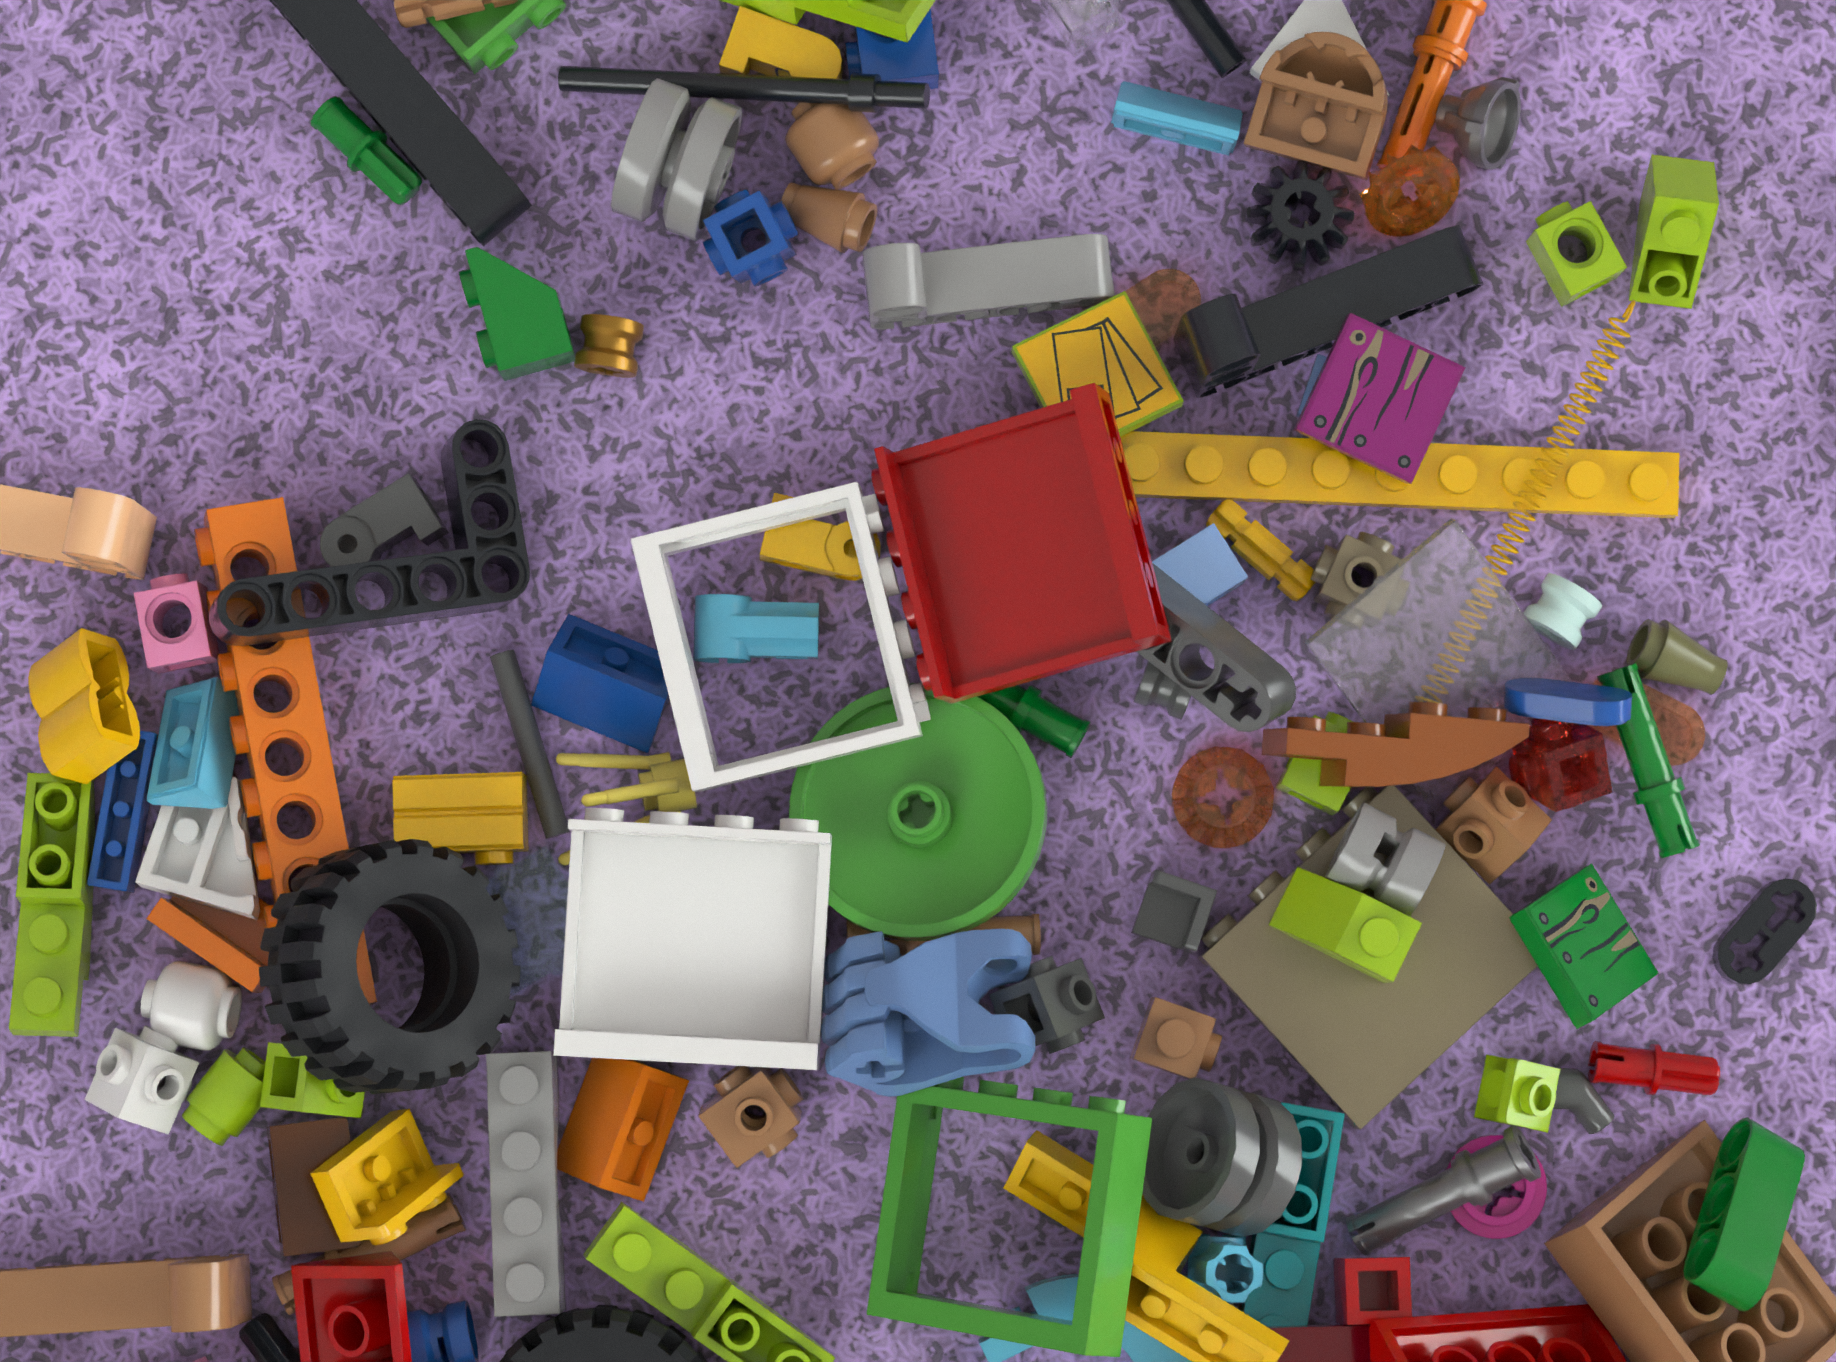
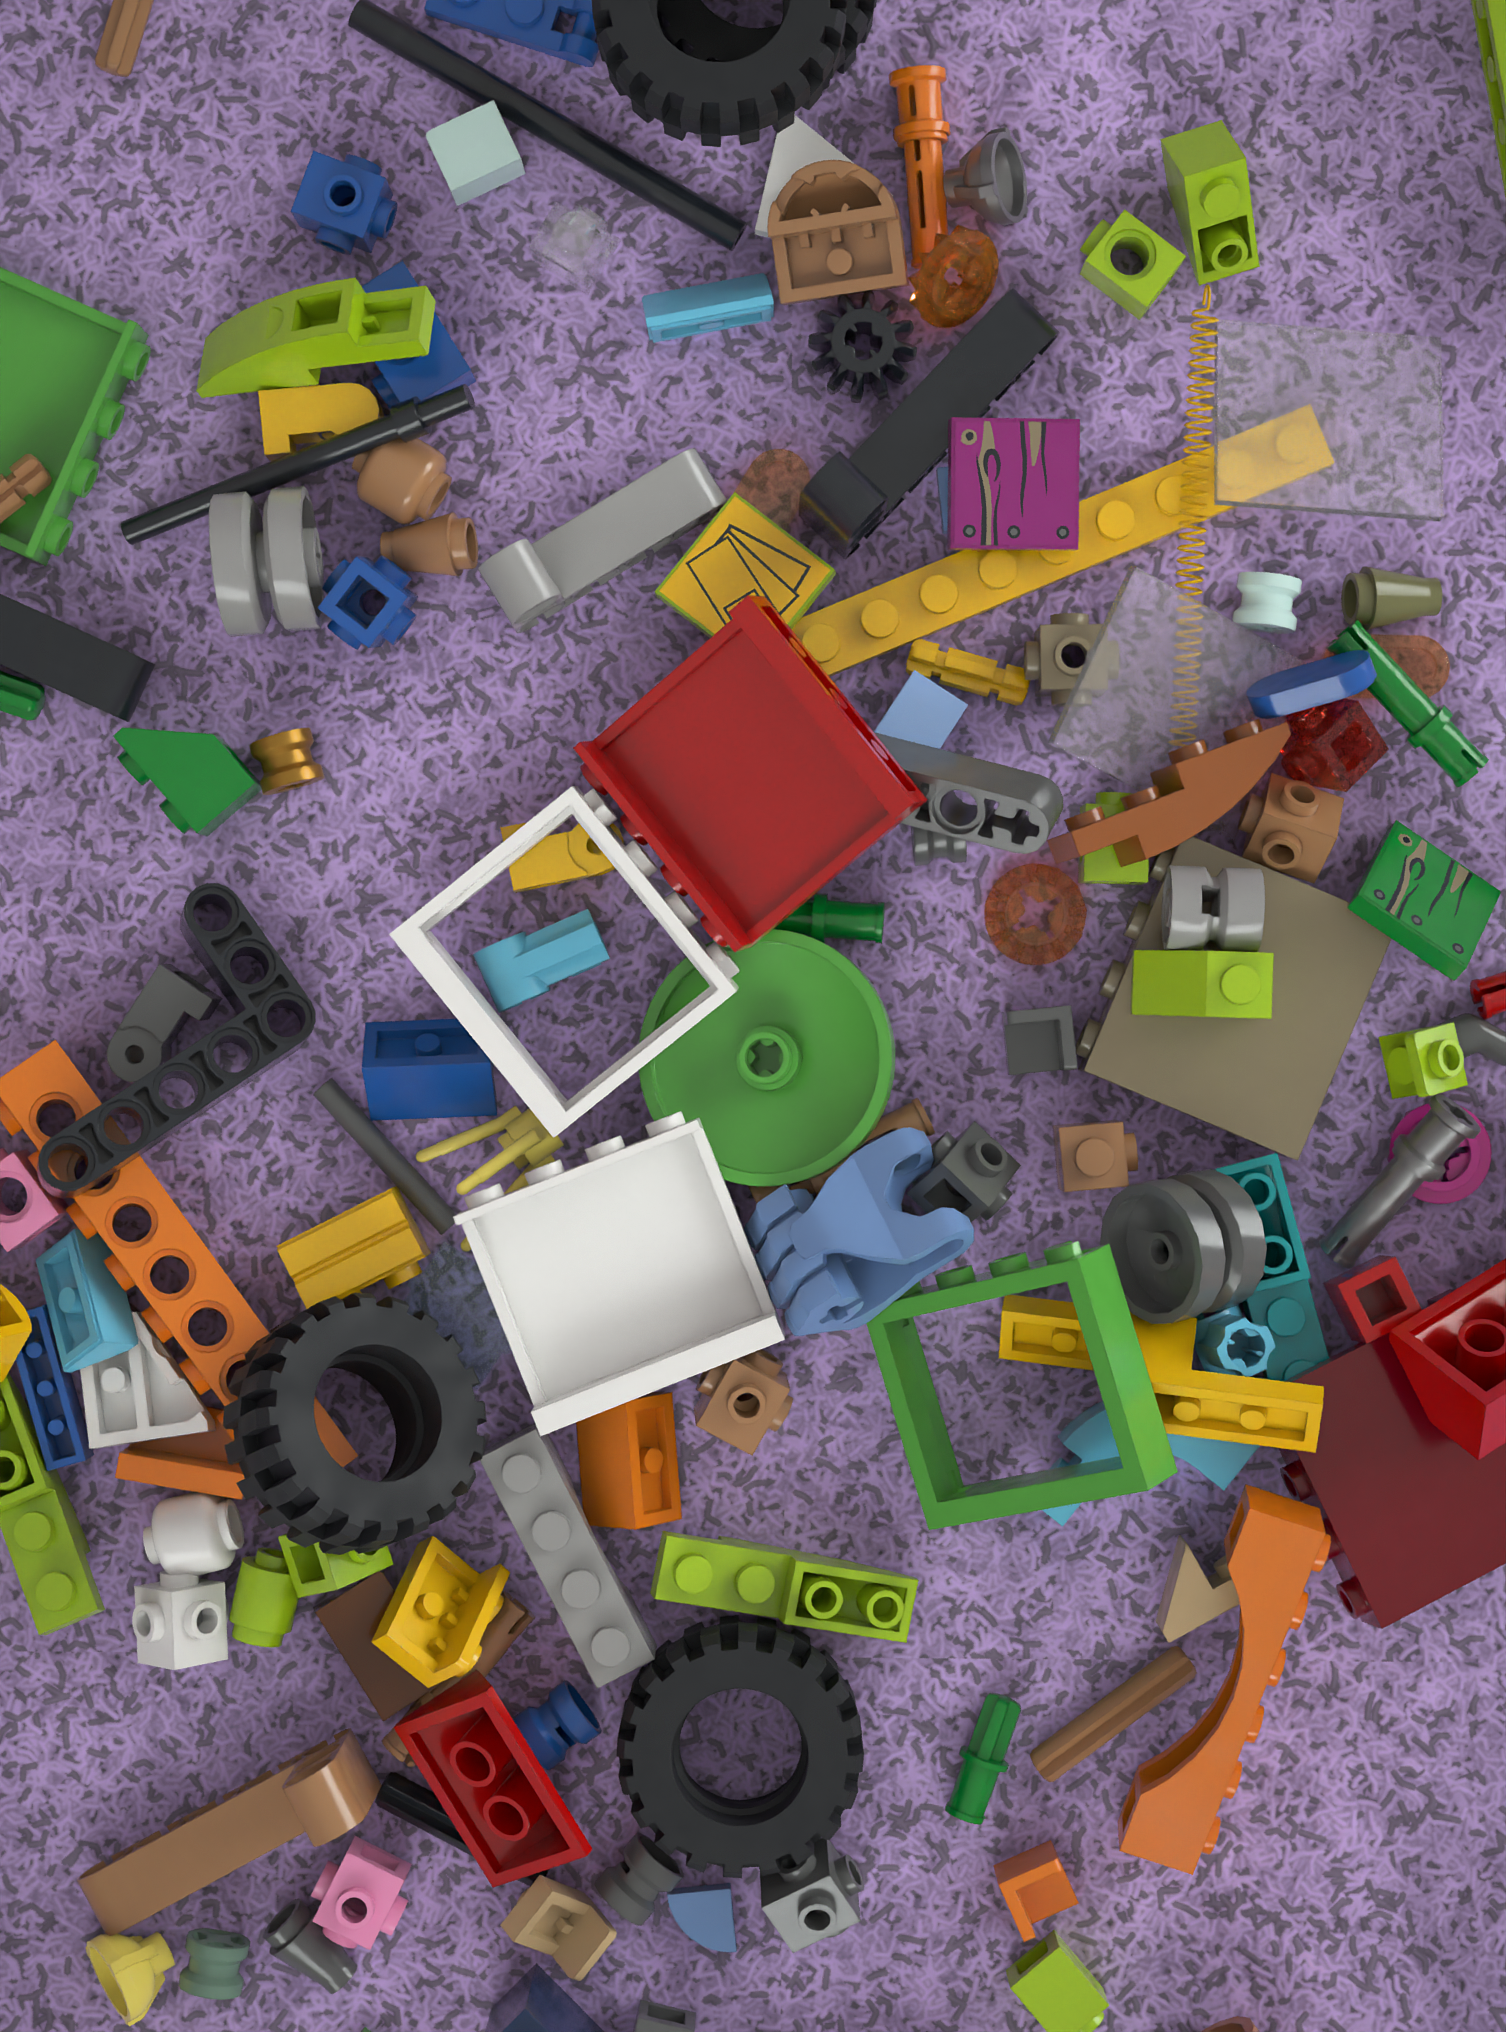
camera: 20 degrees left, 5 degrees up
(1690, 473) = (1328, 421): none -> clear piece

